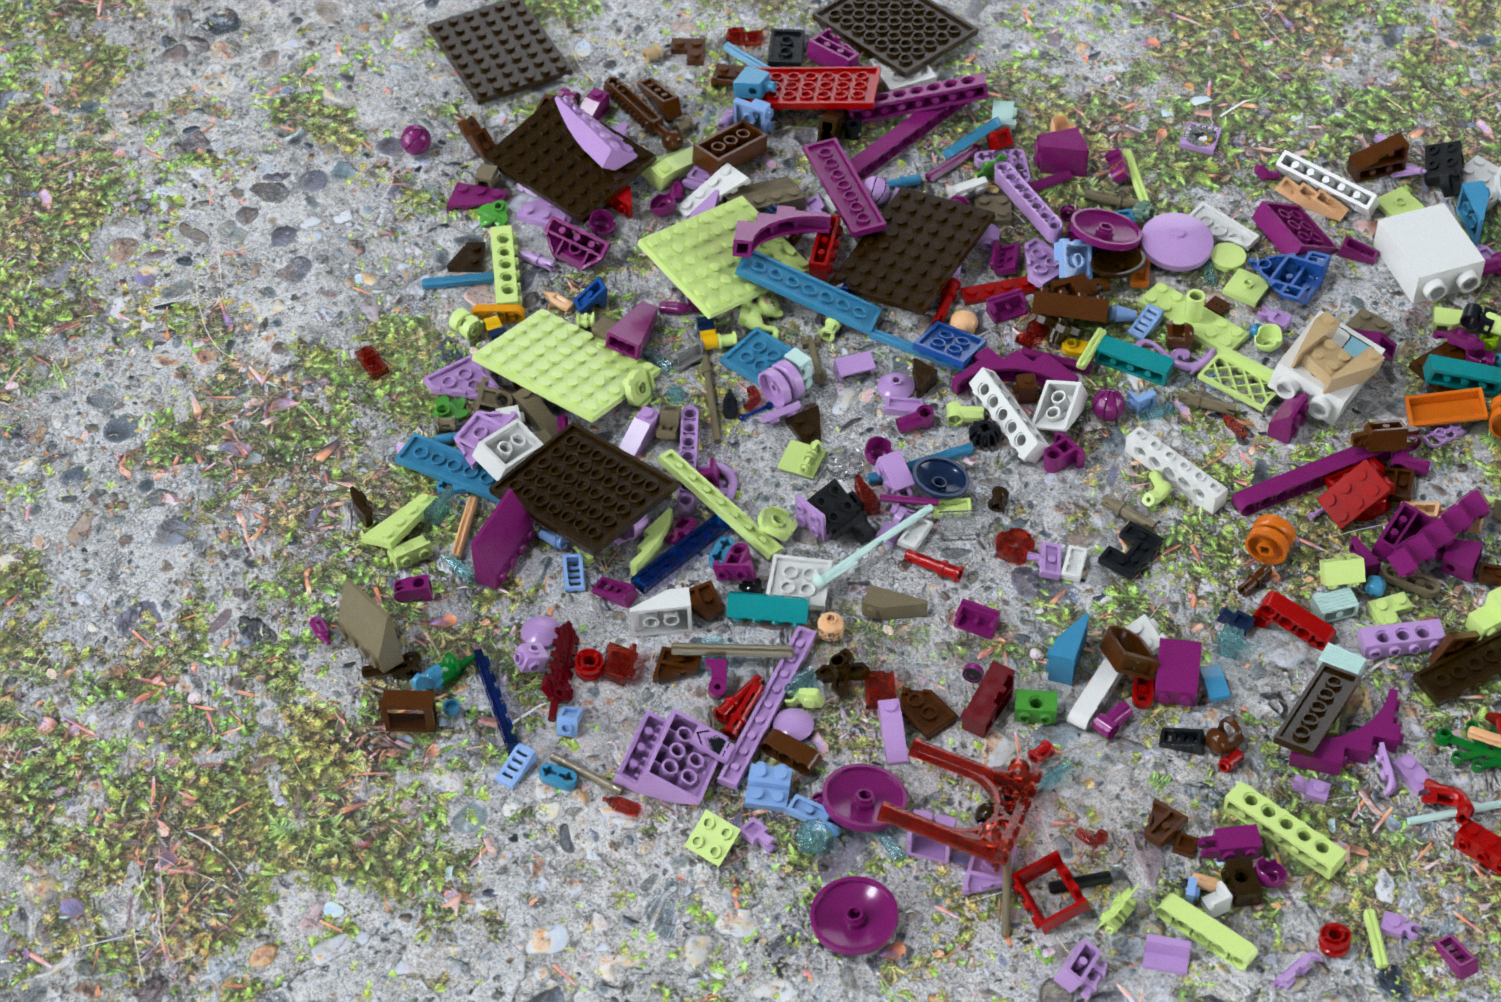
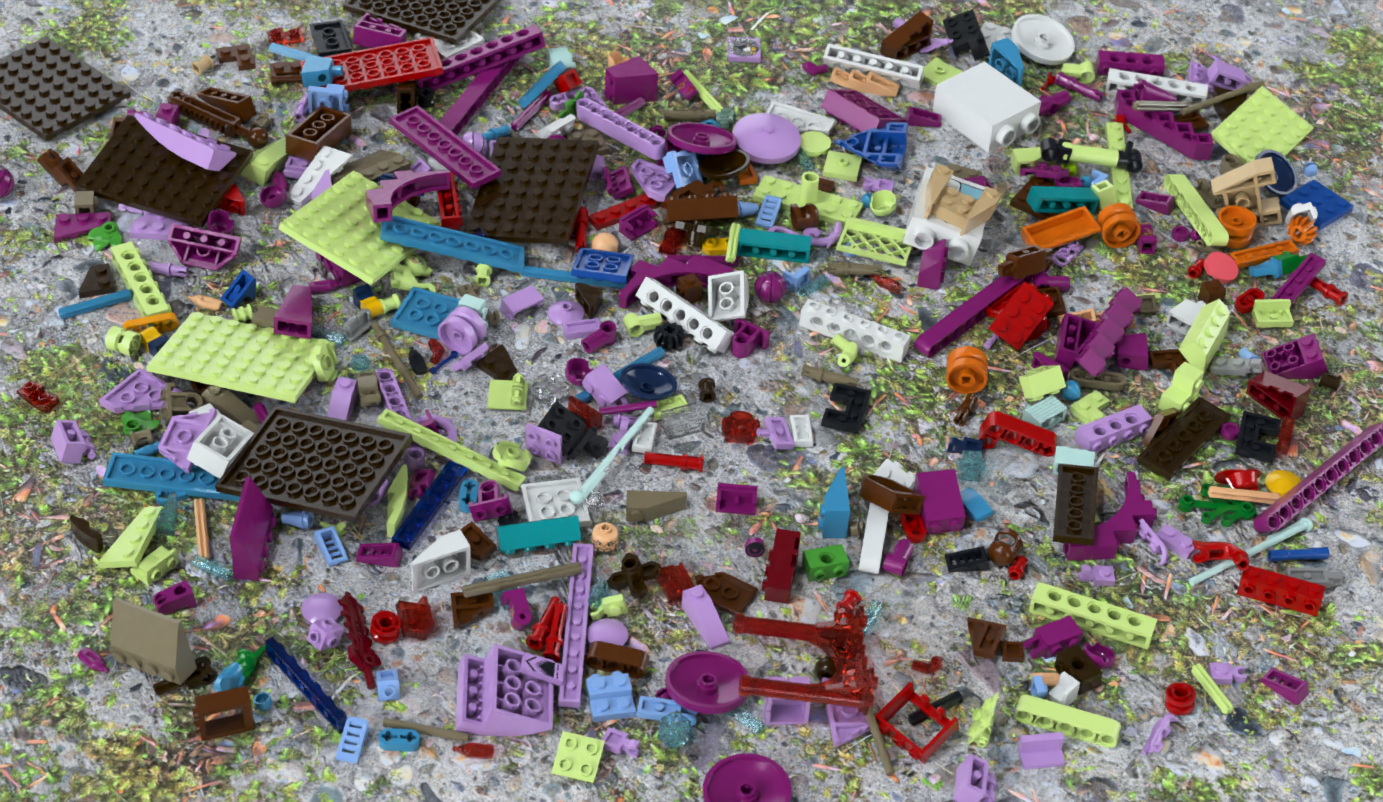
camera: 25 degrees left, 5 degrees down
(379, 412) = (71, 442): none -> lavender brick
(1083, 677) = (857, 527): none -> dark tan plate

